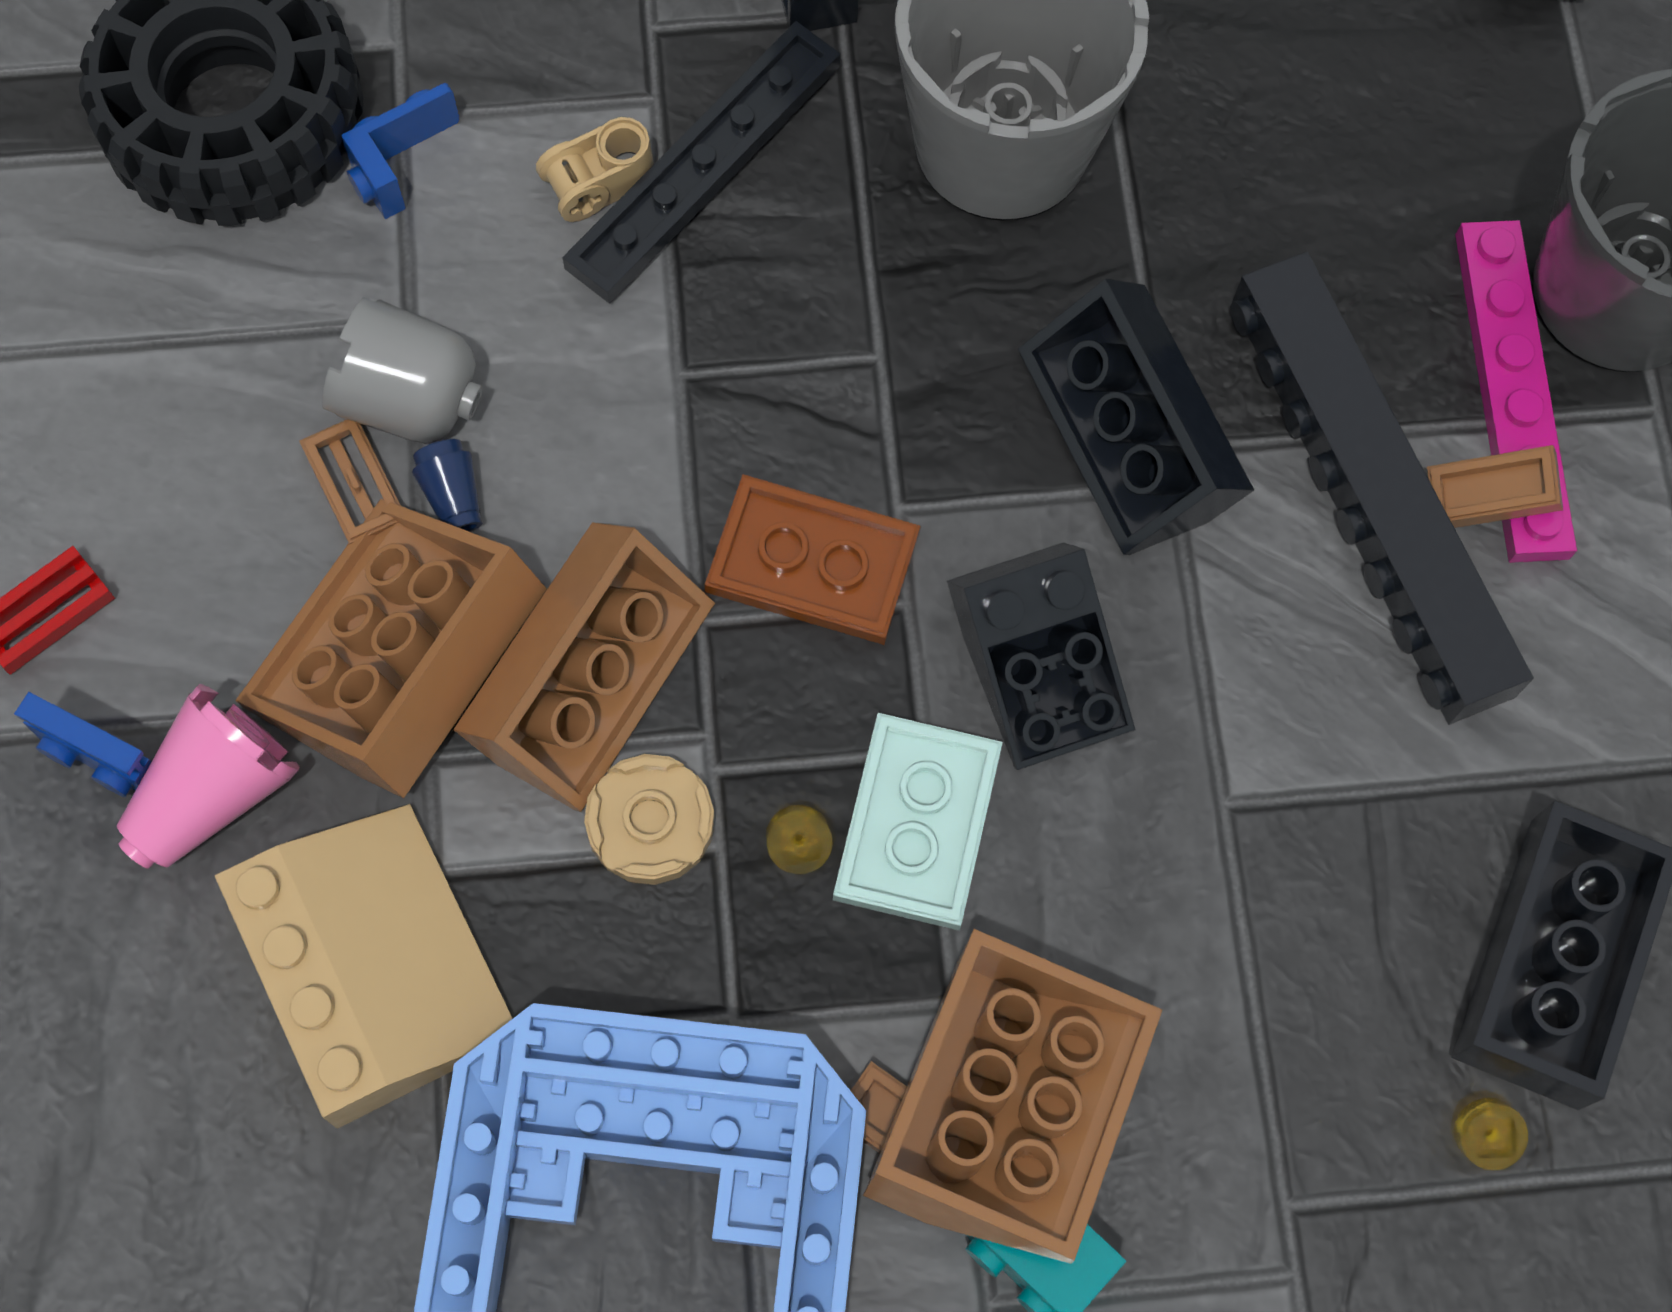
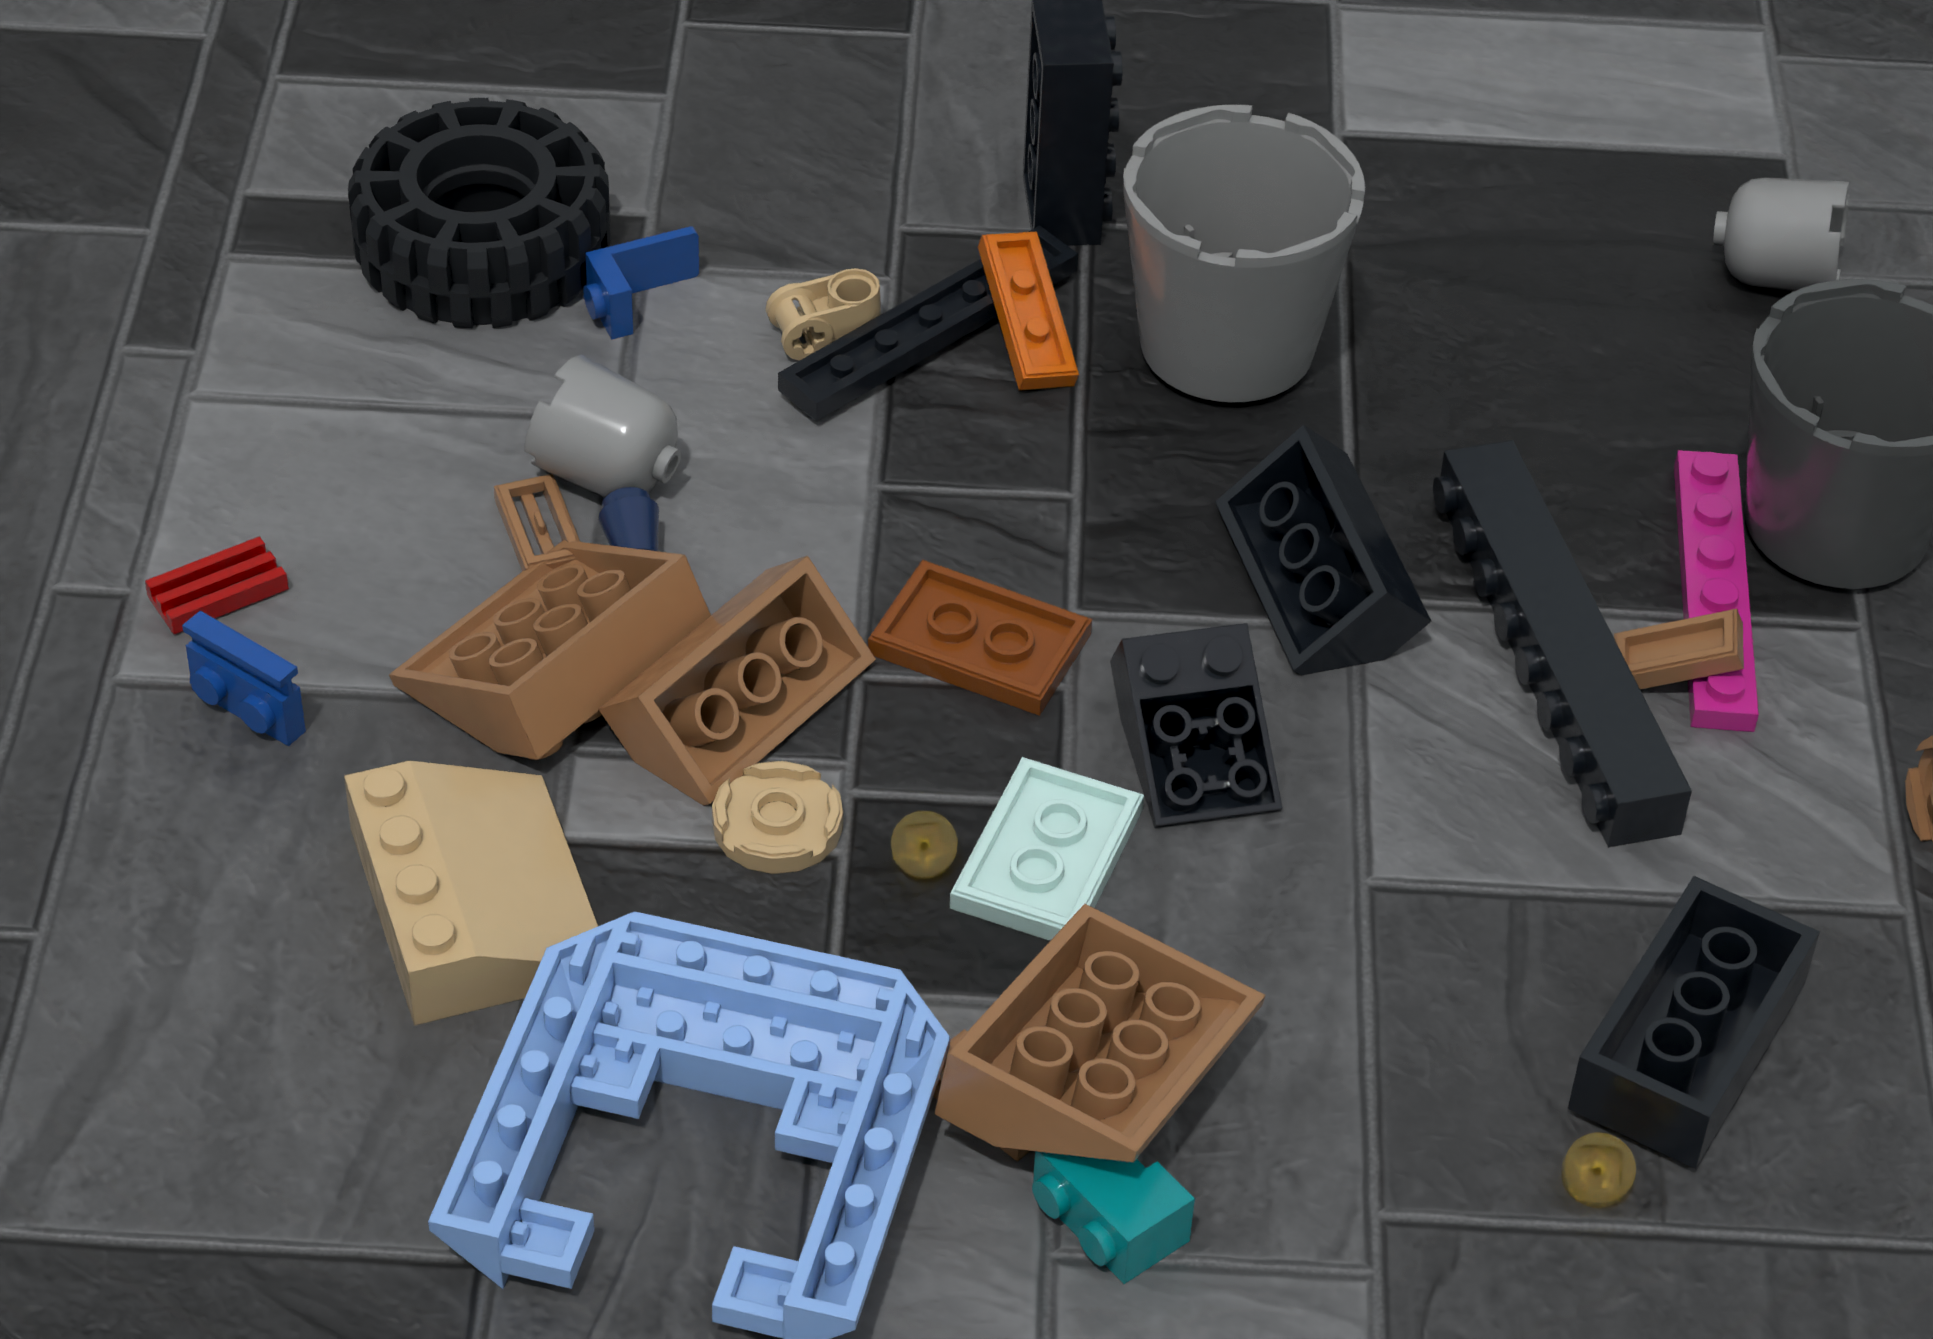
camera: 10 degrees right, 25 degrees down
(200, 780) = (346, 714): bright pink cone -> none
(801, 137) = (1028, 310): none -> orange tile

